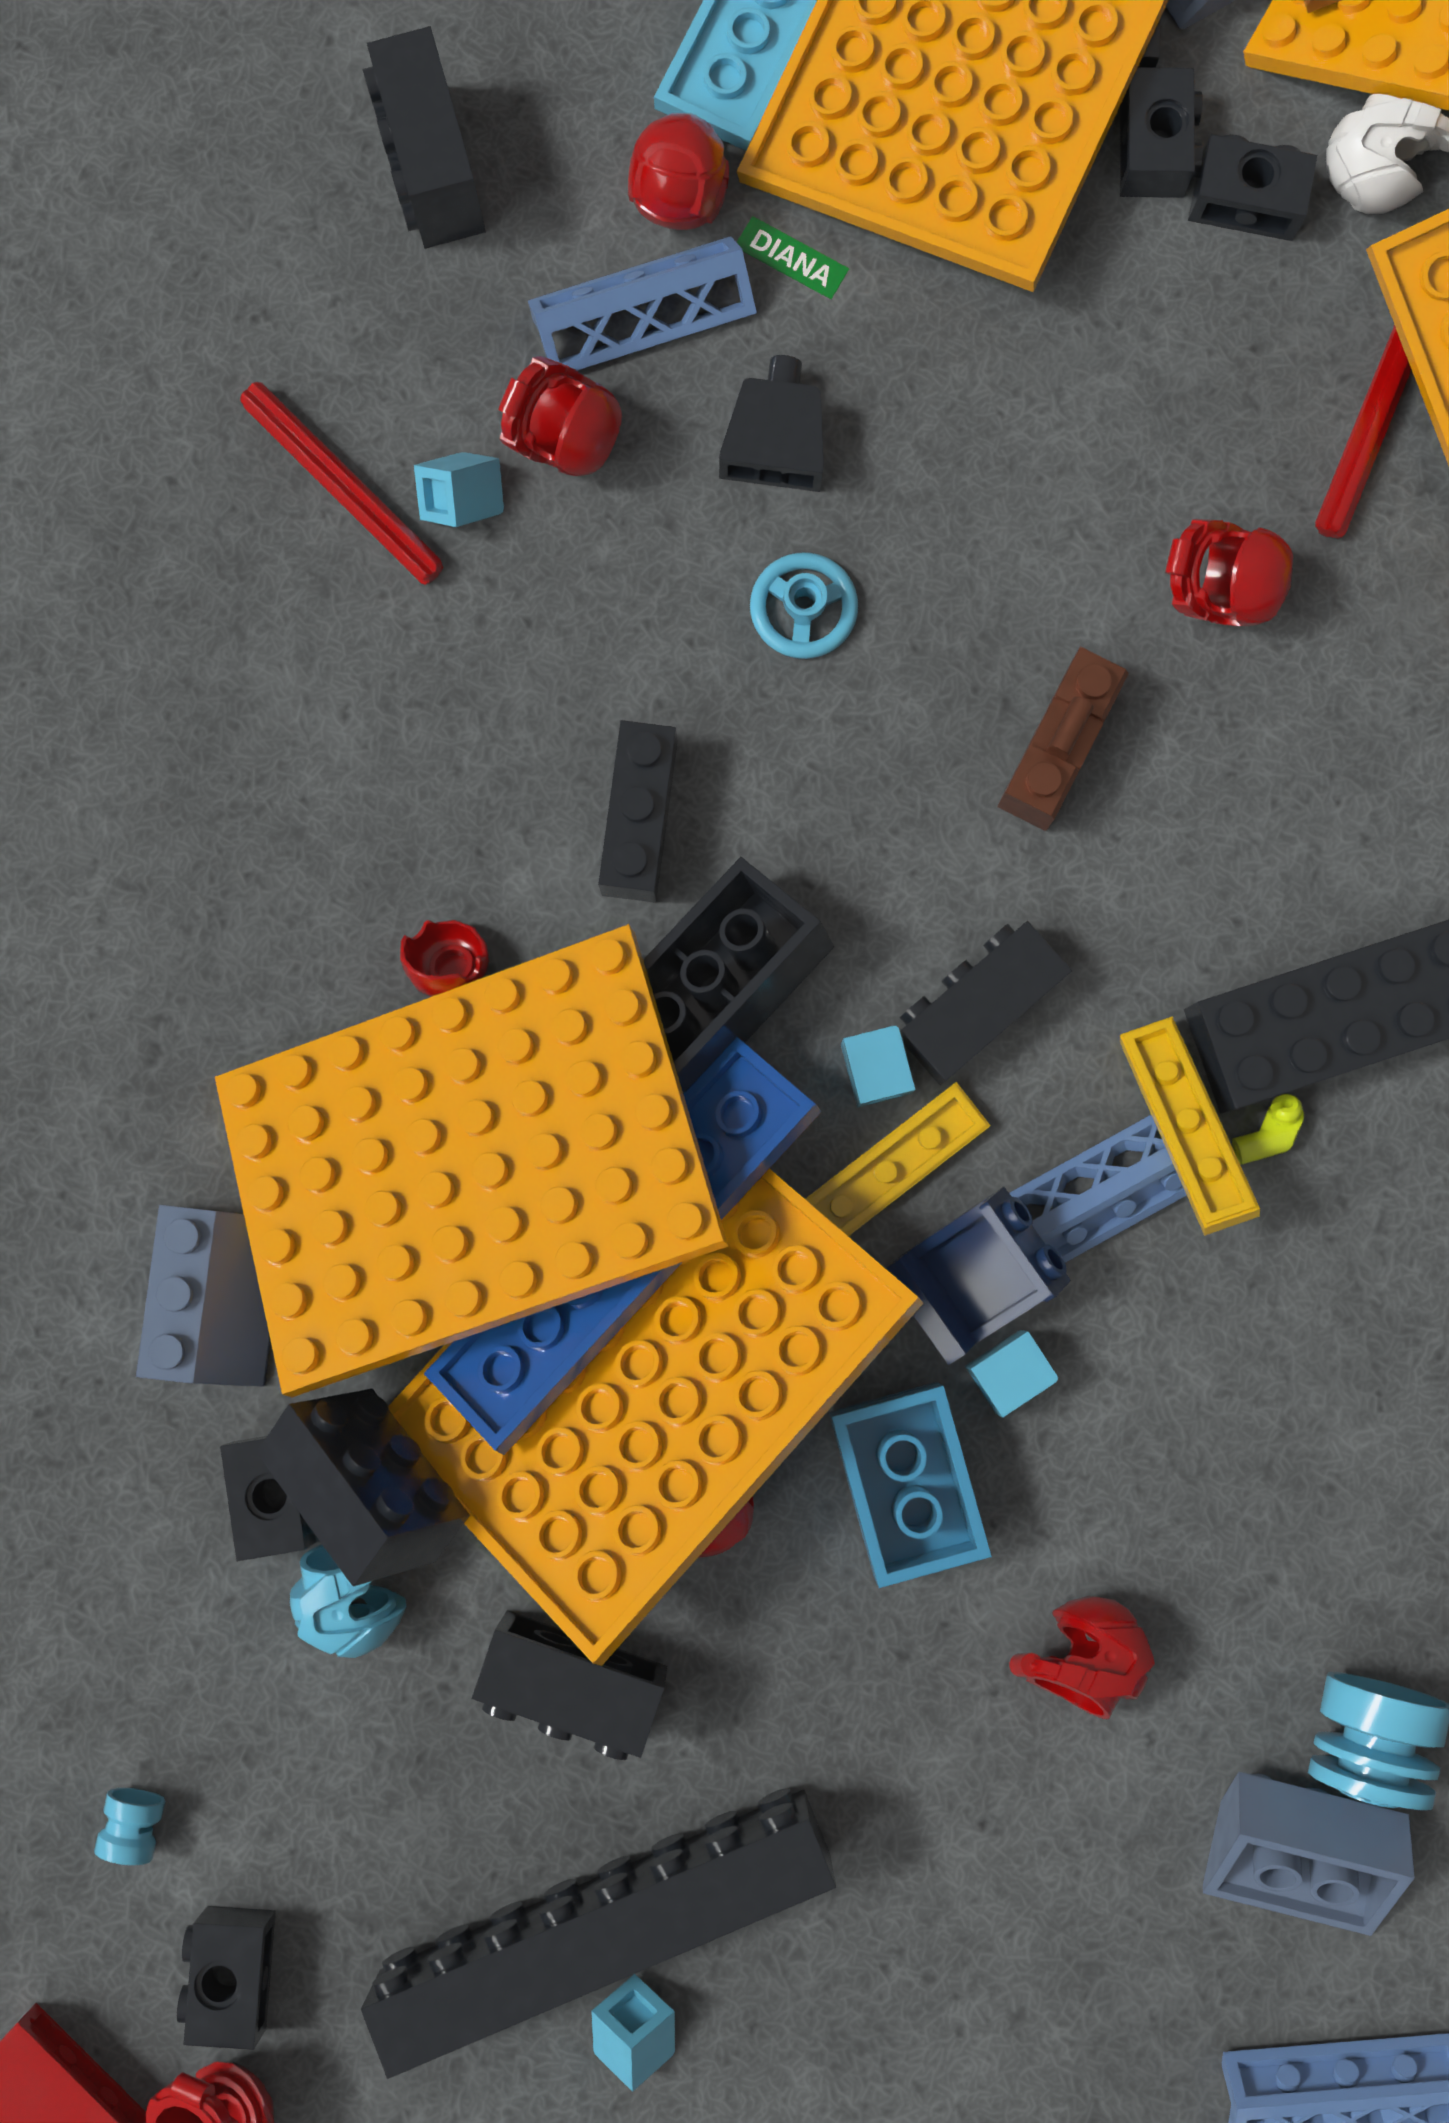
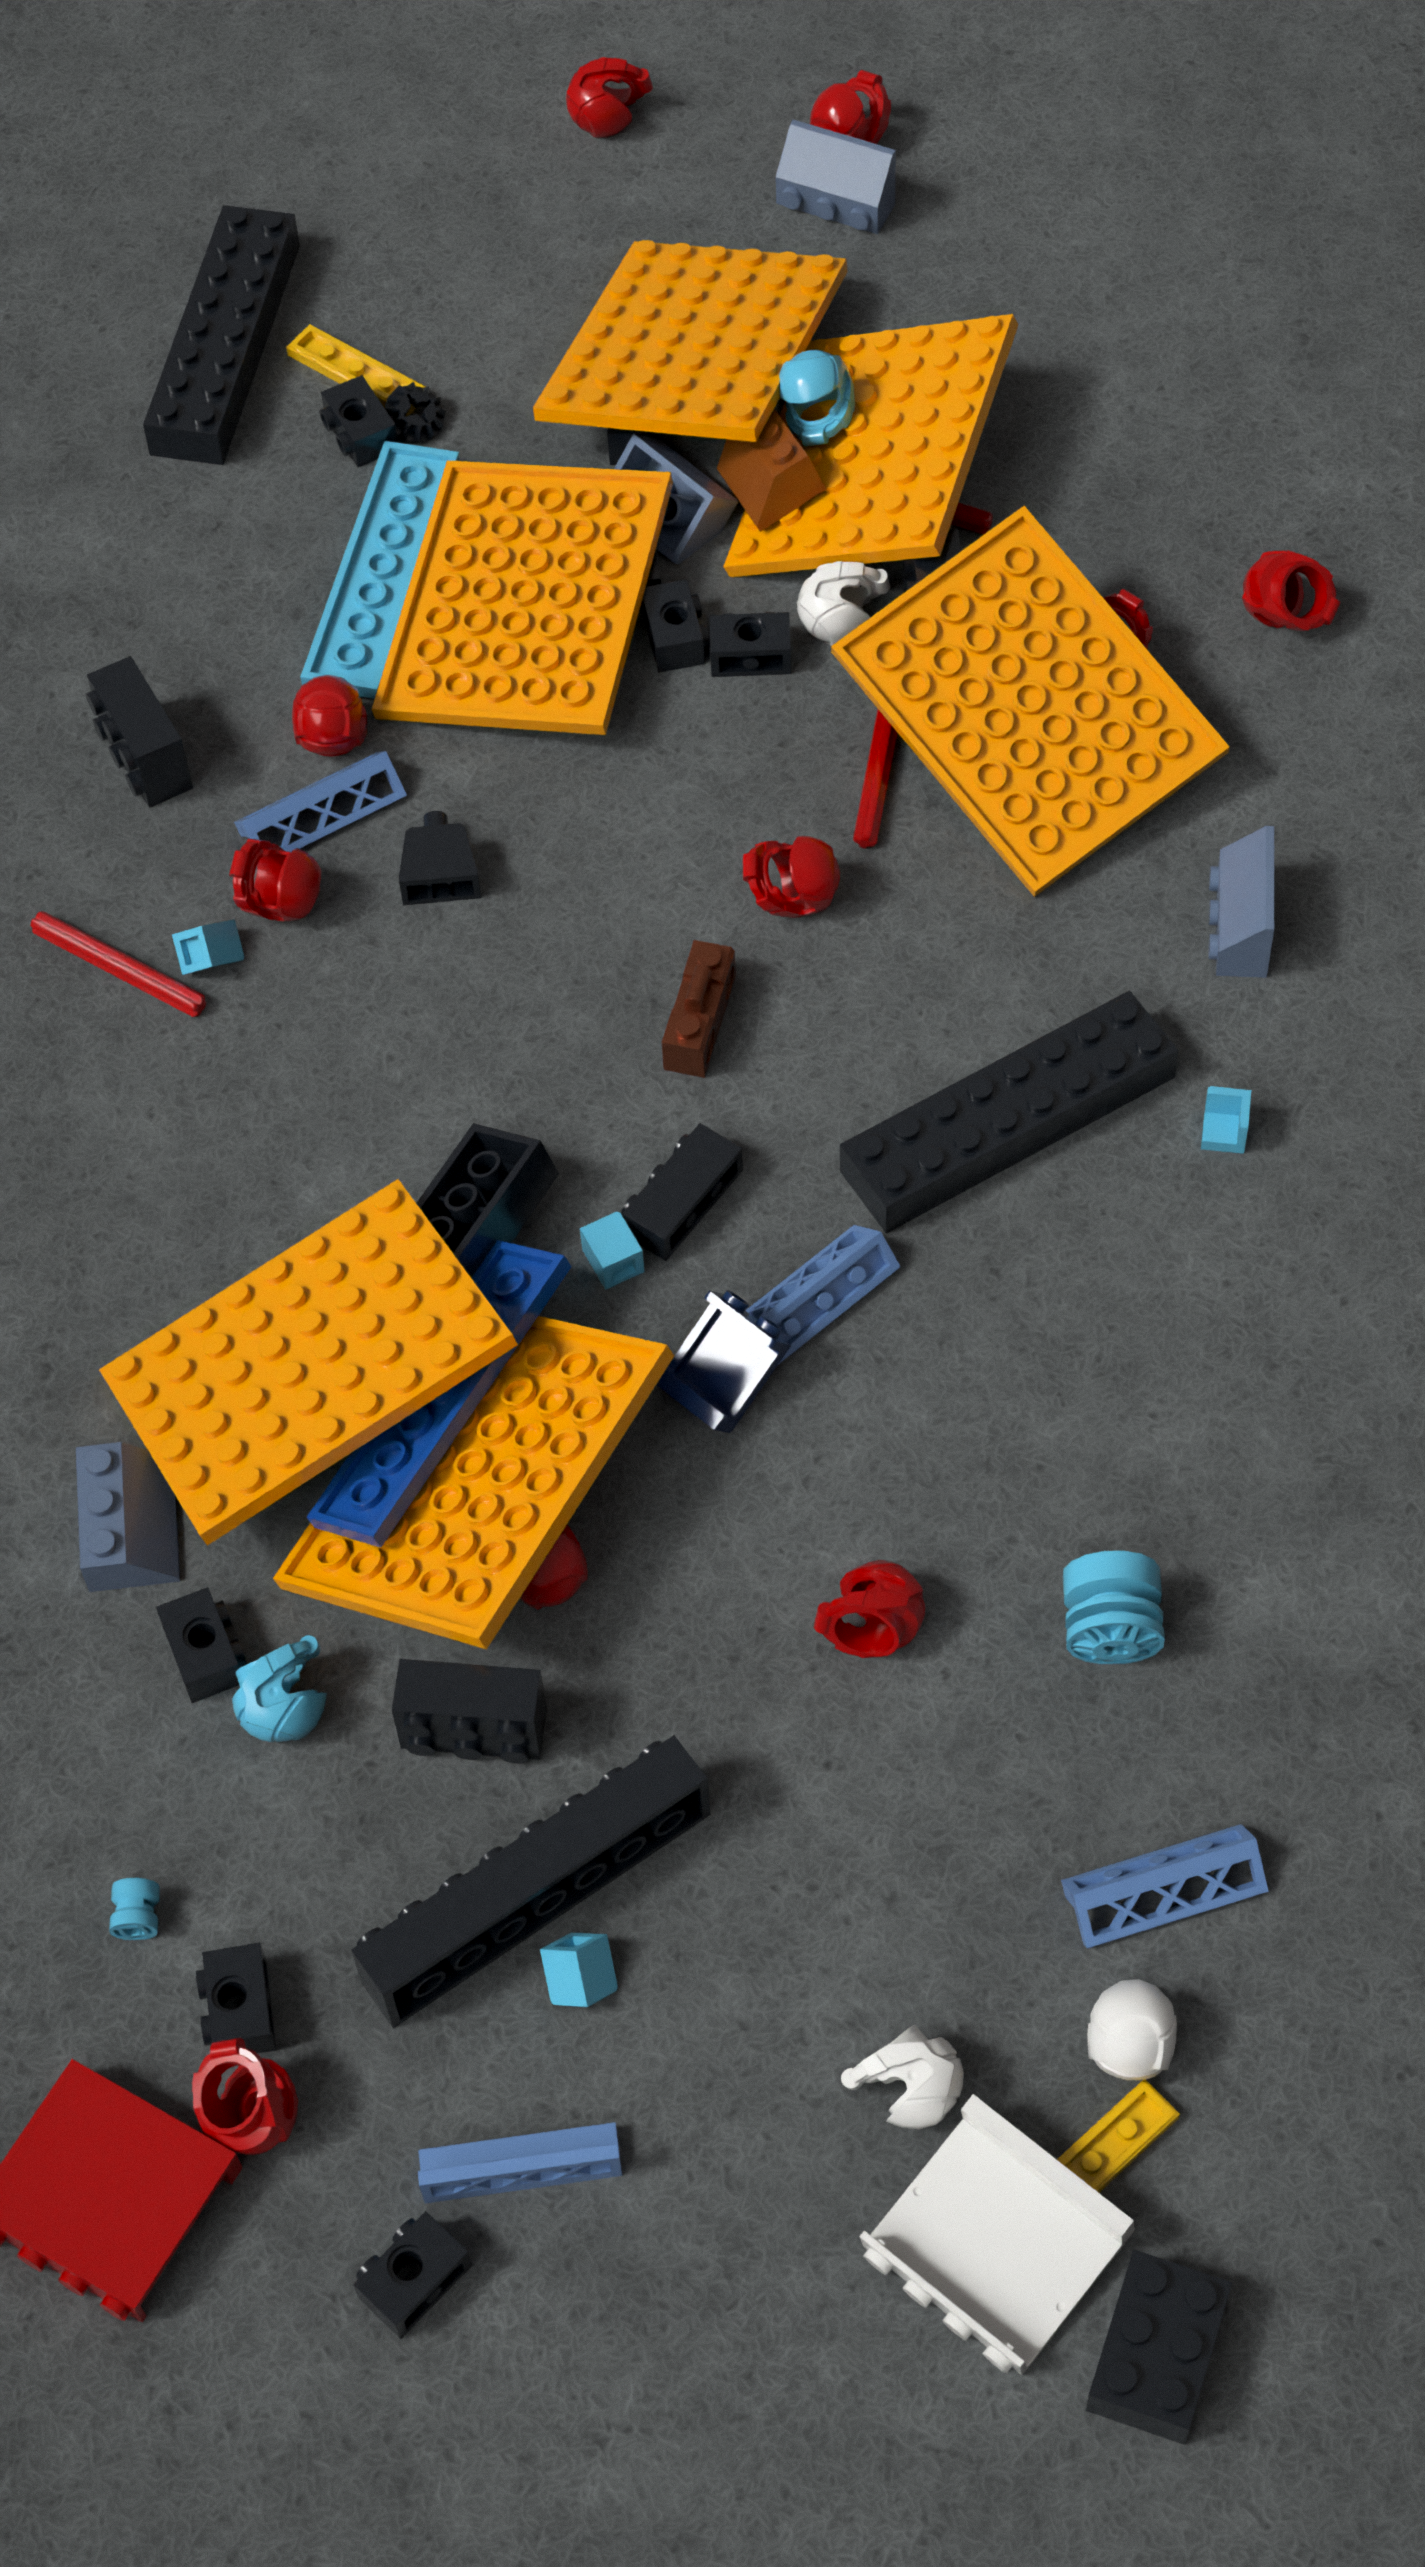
camera: 10 degrees left, 25 degrees down
(362, 1485) = (276, 1590): black brick -> none
(444, 956) = (259, 1245): red hair -> none
(638, 811) = (390, 1120): black brick -> none
(792, 257) = (426, 758): green sticker -> none
(809, 586) = (484, 961): medium azure piece -> none
(899, 1160) = (660, 1299): yellow tile -> none
(909, 1484) = (703, 1518): dark azure brick -> none
(1012, 1373) = (762, 1429): medium azure panel -> none
(1189, 1126) = (855, 1228): yellow tile -> none
(1276, 1132) = (930, 1232): neon yellow arm -> none
(1309, 1854) = (1086, 1717): sand blue slope -> none

